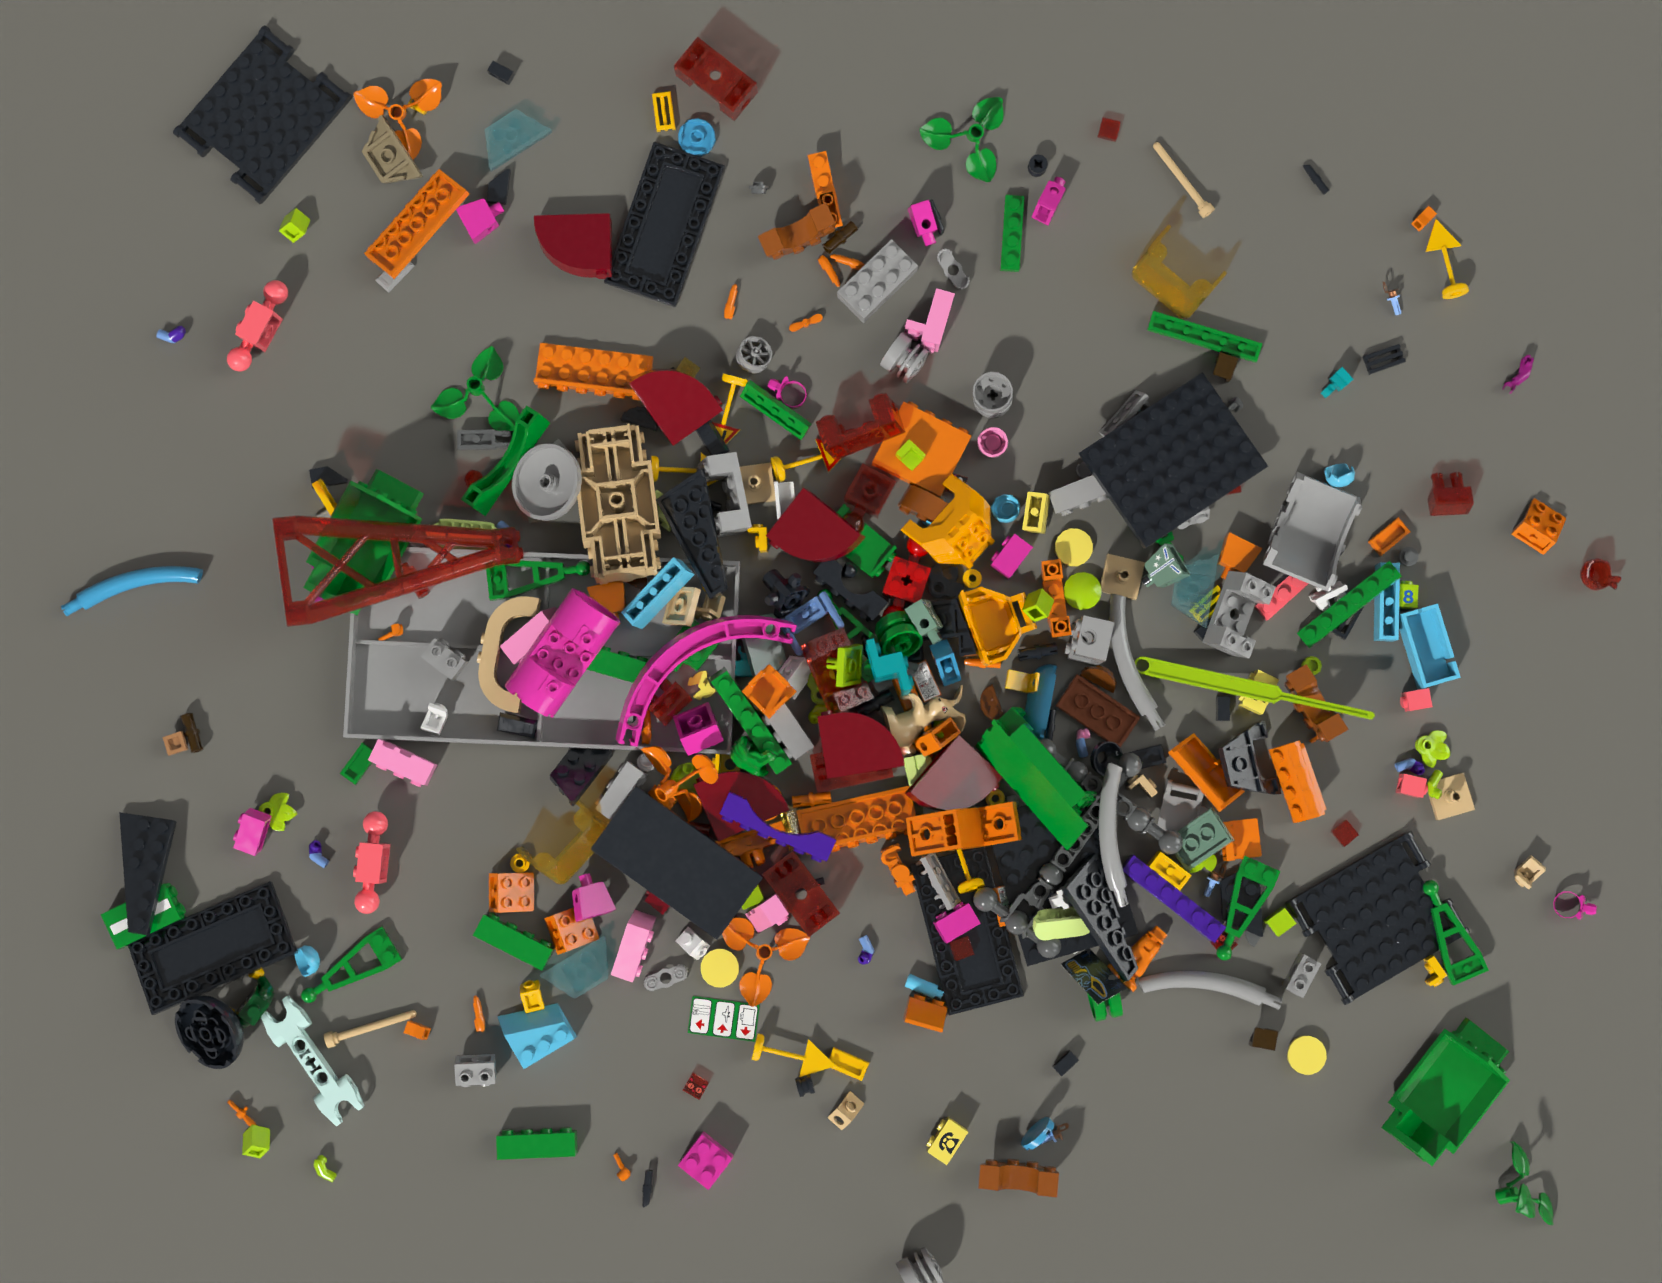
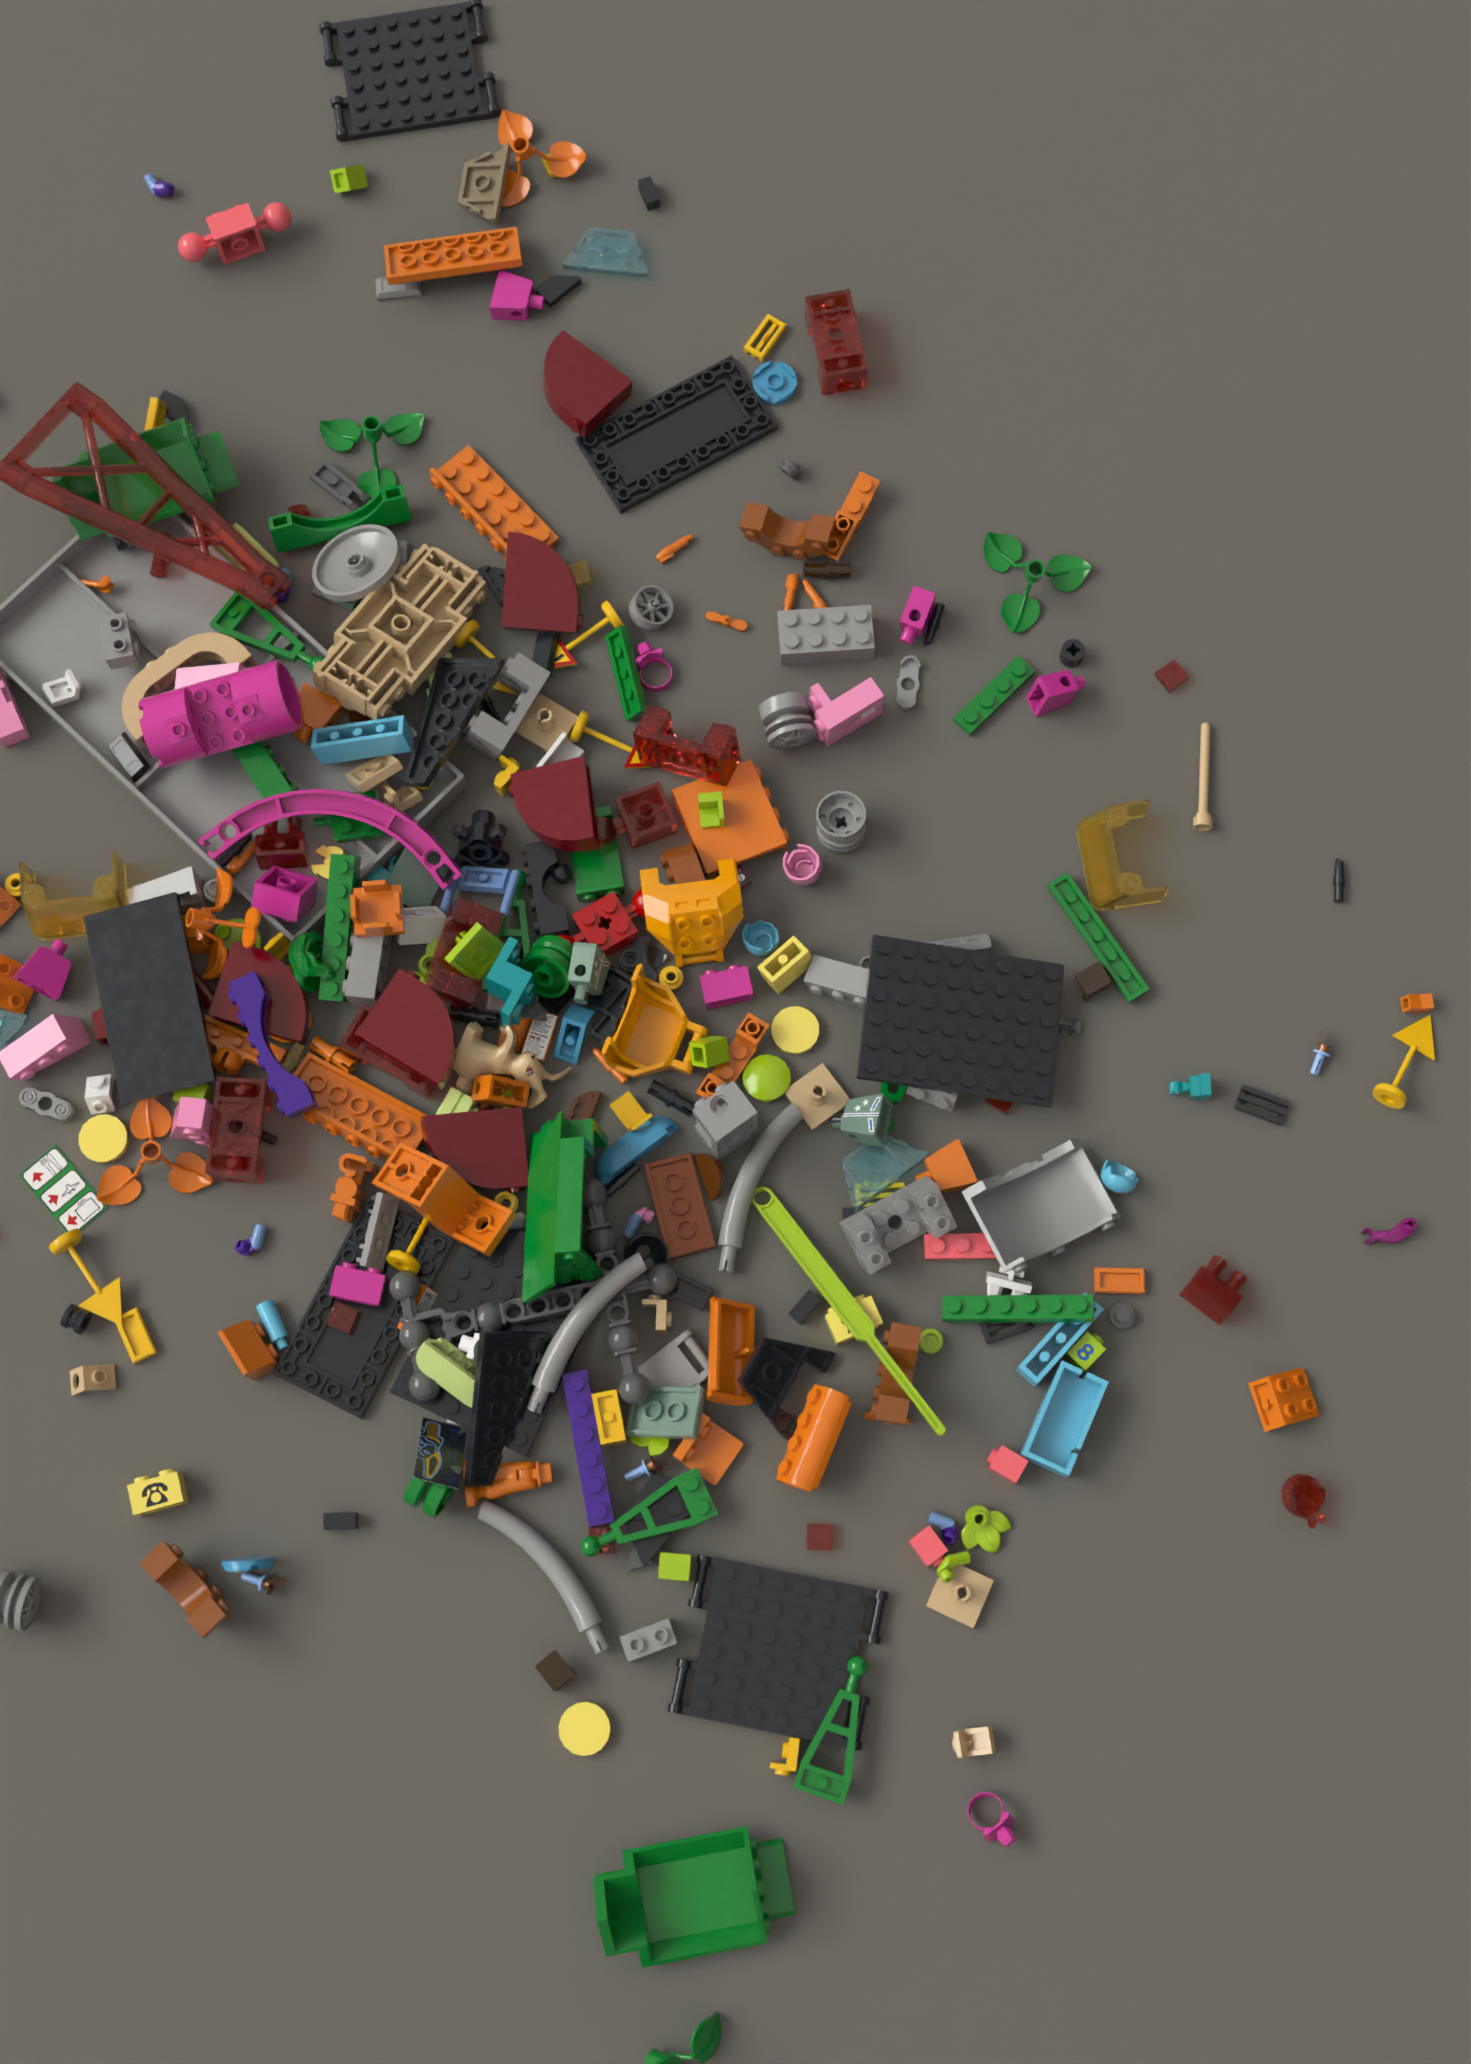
camera: 45 degrees right, 10 degrees down
(578, 771) = (144, 844): black wing -> none

